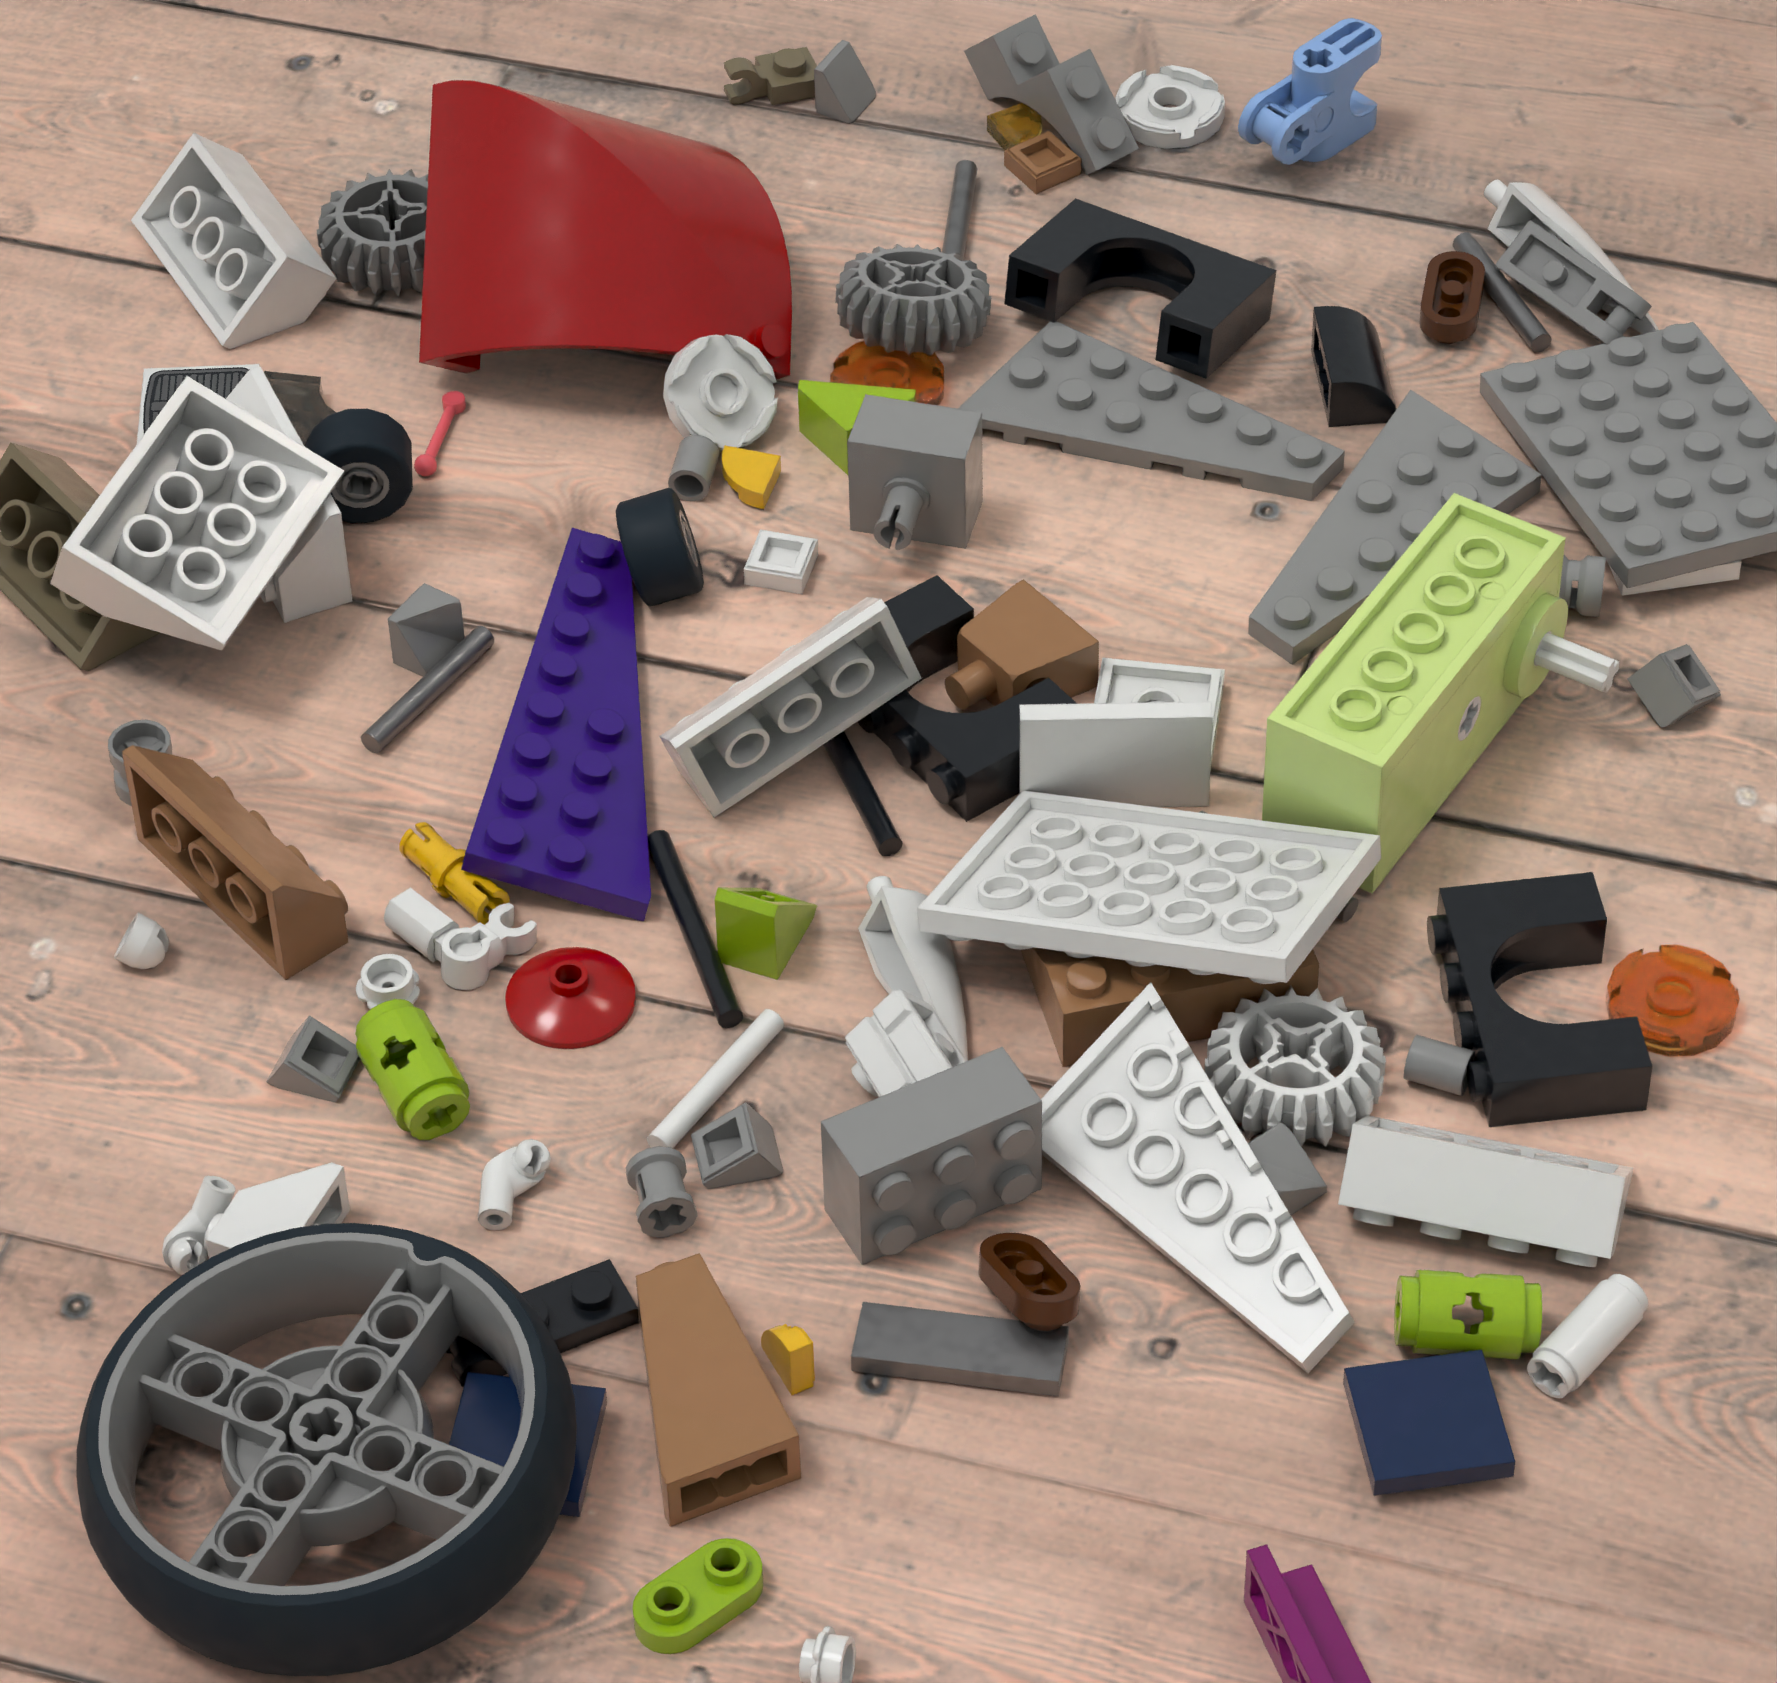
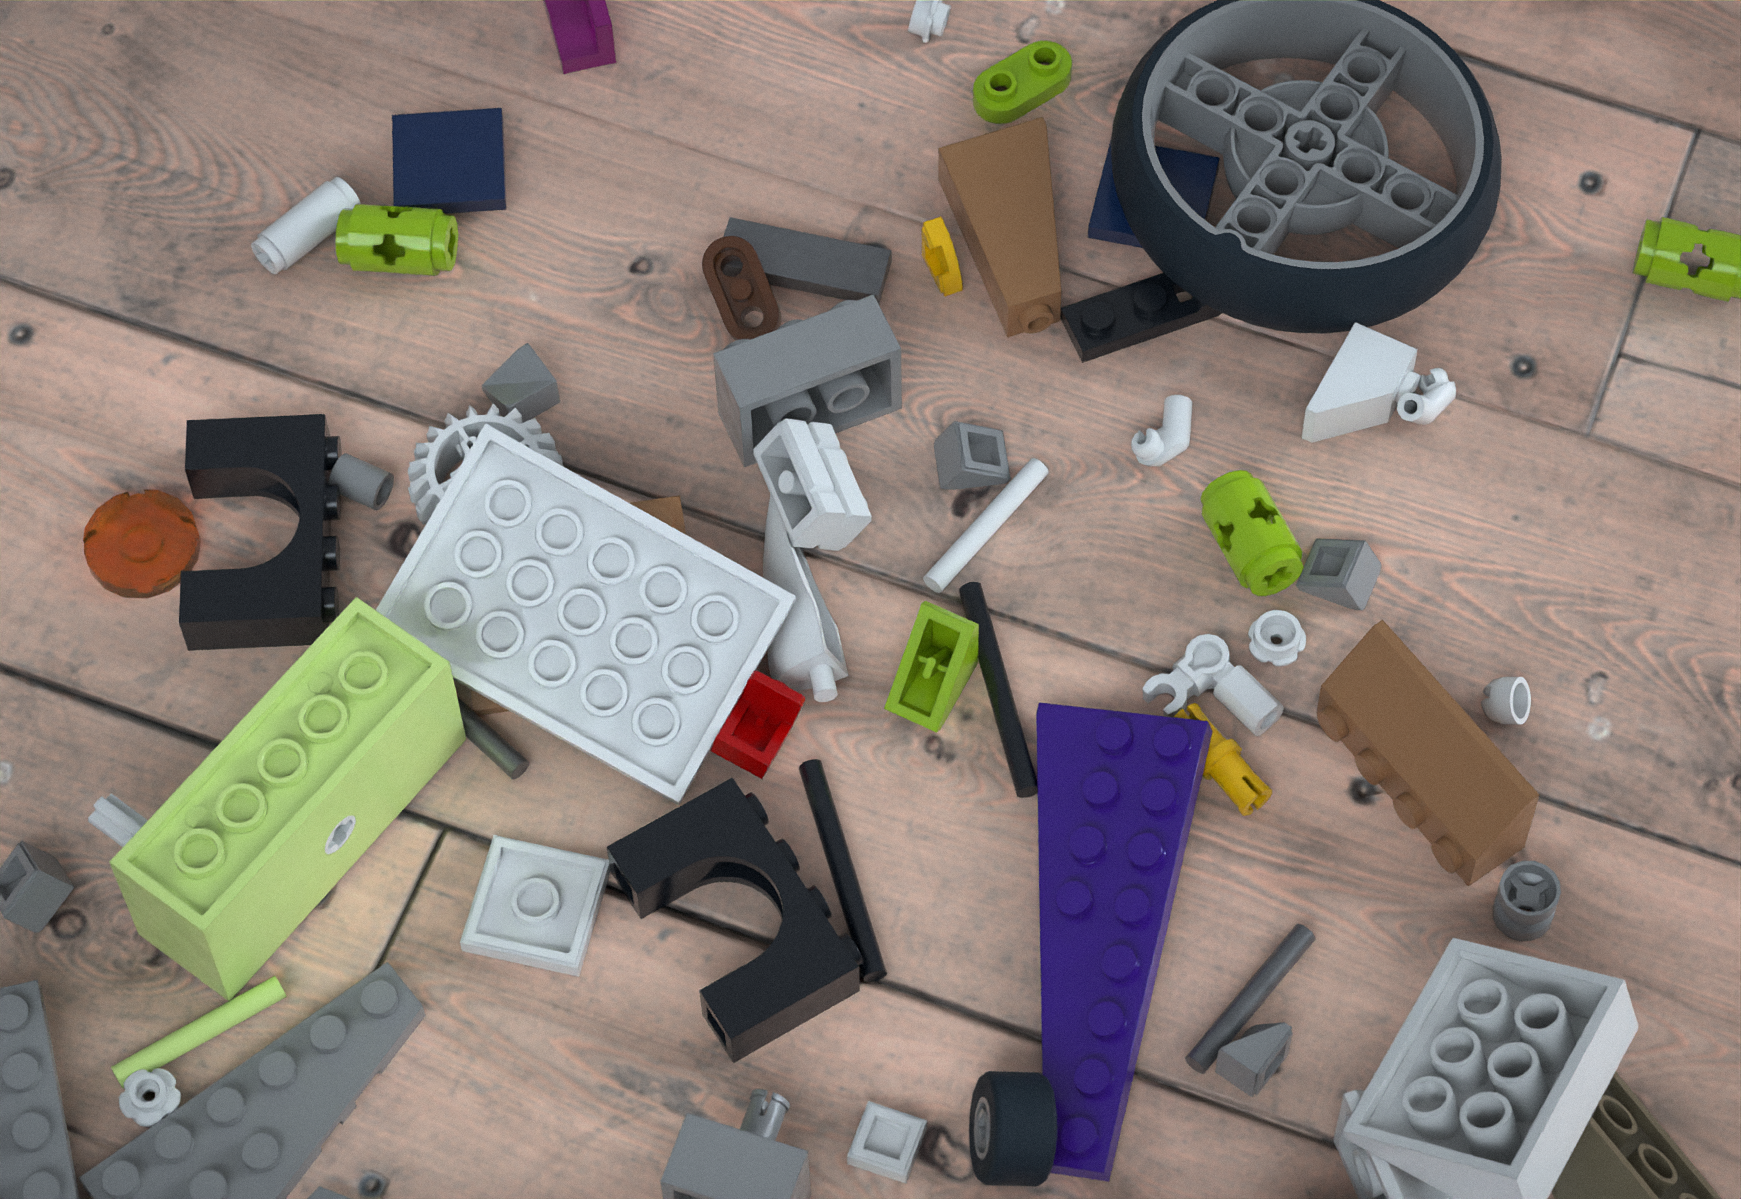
camera: 175 degrees left, 15 degrees up
(570, 998) = (1106, 652): red dish -> none
(658, 1179) = (1037, 404): light grey bush -> none
(792, 705) = (896, 855): white slope -> none
(942, 846) = (758, 724): none -> red bracket
(1018, 645) = (657, 964): medium nougat torso -> none
(1118, 751) = (583, 790): white tile -> none
(1168, 1160) = (611, 389): white wing -> none
(1484, 1188) = (348, 357): white slope -> none
(1590, 578) = (95, 1013): light grey wheel -> none

